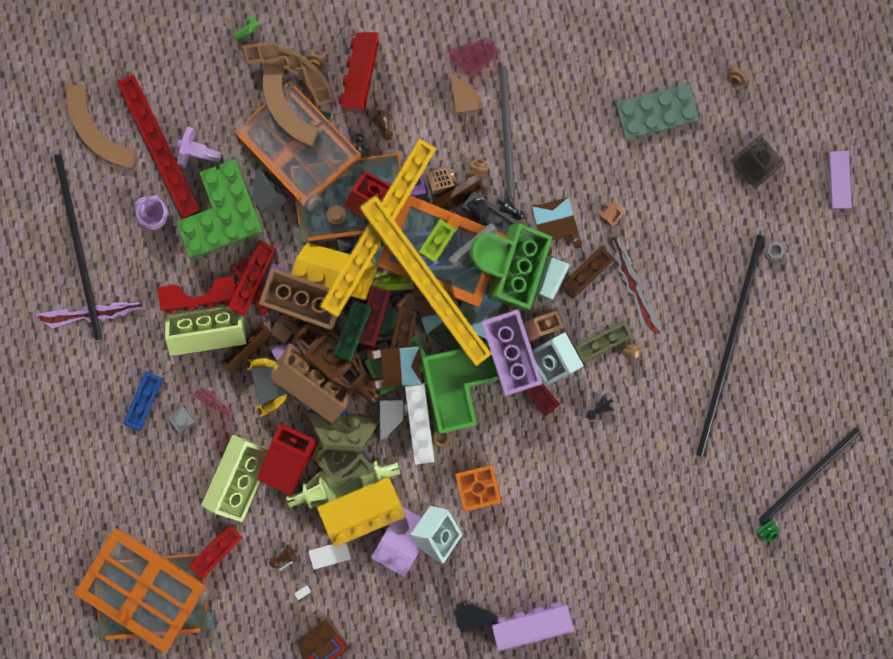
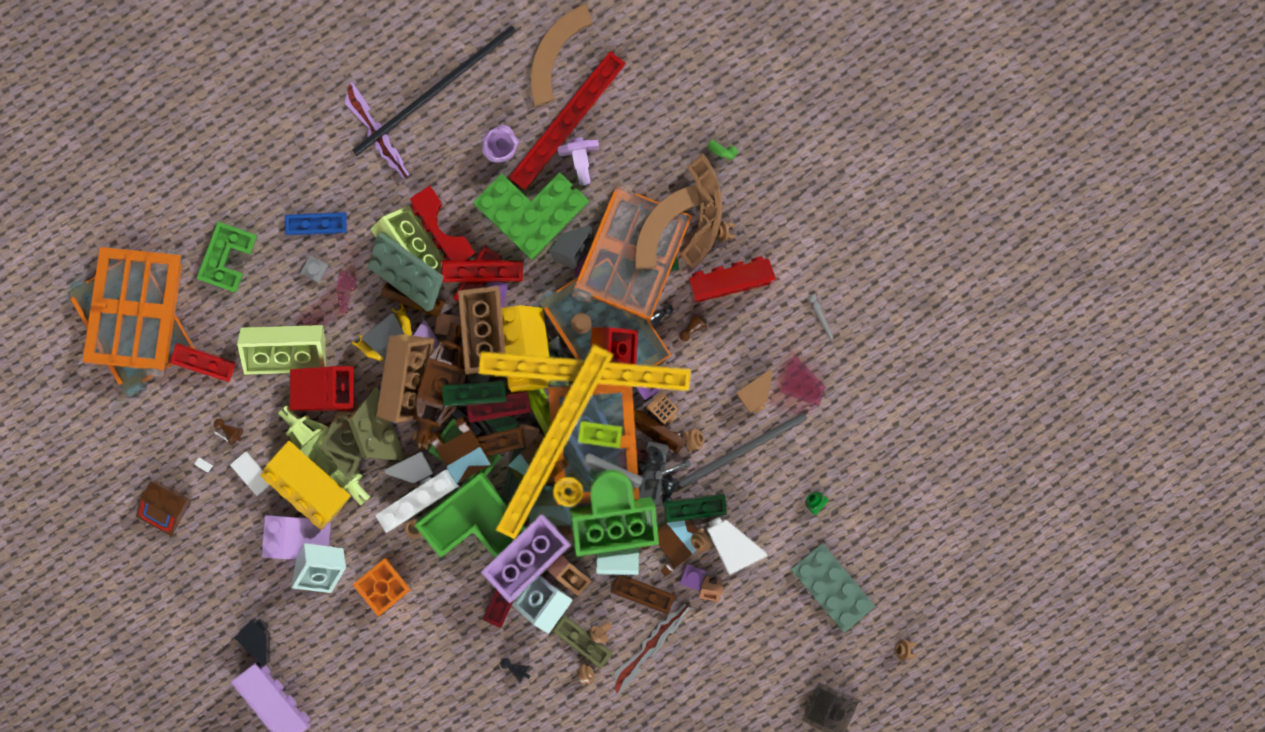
camera: 60 degrees right, 0 degrees up
(138, 505) = (213, 266): none -> bright green plate
(221, 341) = (405, 271): none -> sand green plate
(416, 14) = (816, 307): none -> light grey piece
(474, 283) = (576, 490): none -> yellow wheel
(494, 210) = (658, 474): none -> dark grey hinge
(536, 194) = (695, 508): none -> dark green tile
(566, 202) = (701, 540): none -> medium nougat plate
(579, 91) = (815, 502): none -> green plate
(583, 176) = (733, 546): none -> white slope
(593, 224) = (693, 577): none -> medium lavender plate
(603, 324) = (599, 634): none -> medium nougat plate

